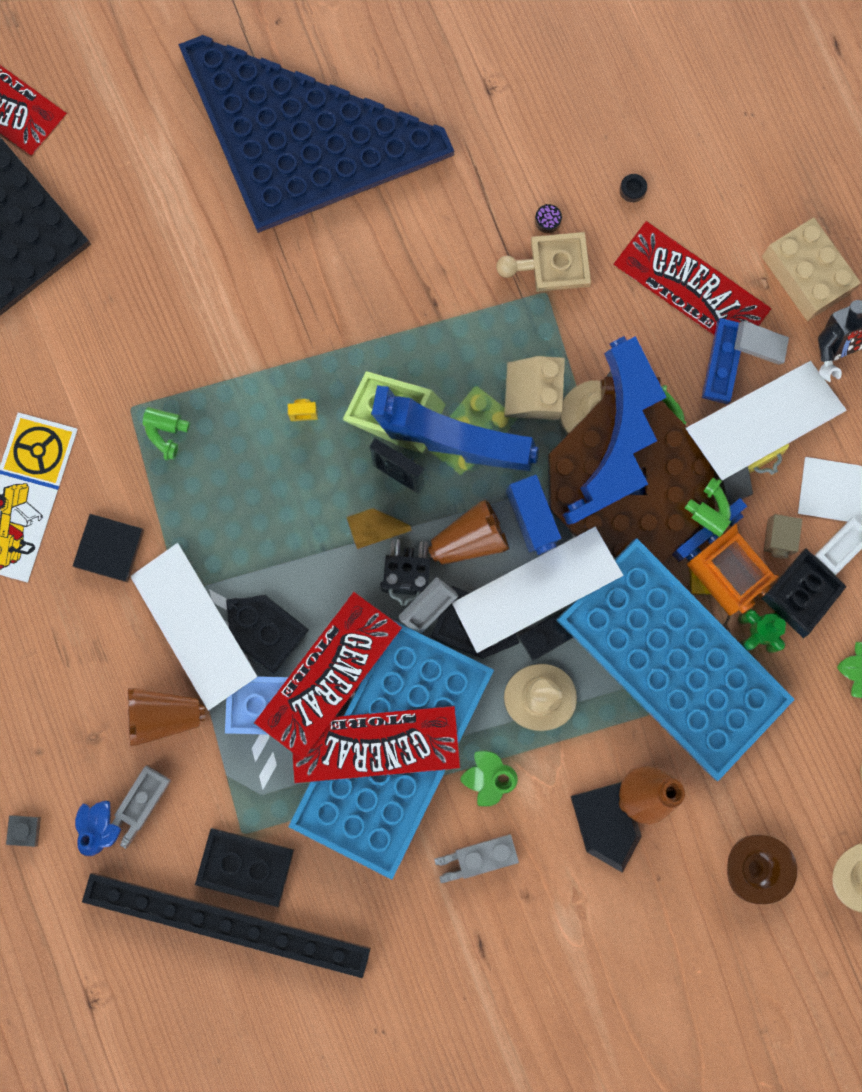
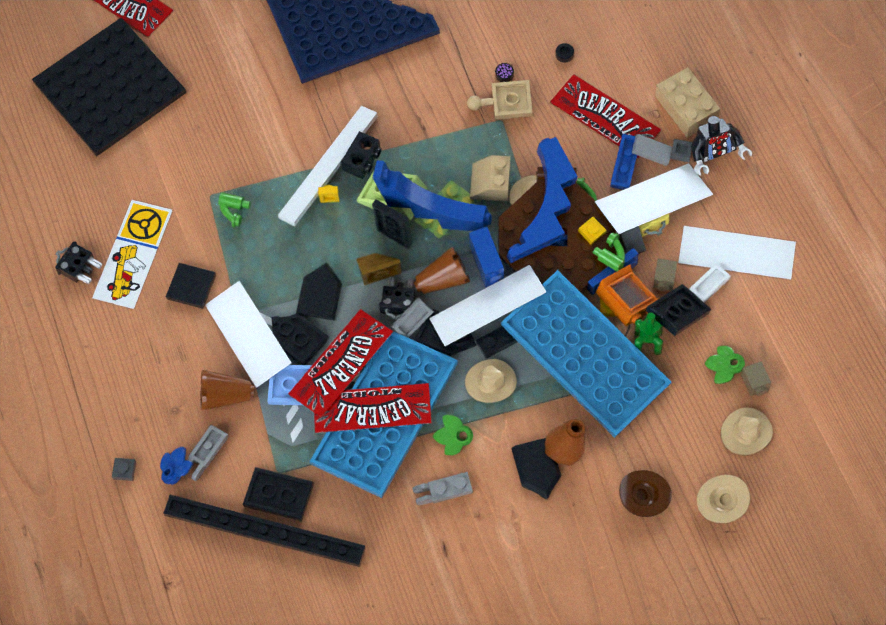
camera: 10 degrees right, 15 degrees down
(294, 563) = (320, 294): none -> black tile
(299, 365) = (326, 167): none -> white tile
(341, 348) = (357, 153): none -> black brick
(683, 473) = (592, 230): none -> yellow plate
(802, 343) = (681, 150): none -> dark grey plate

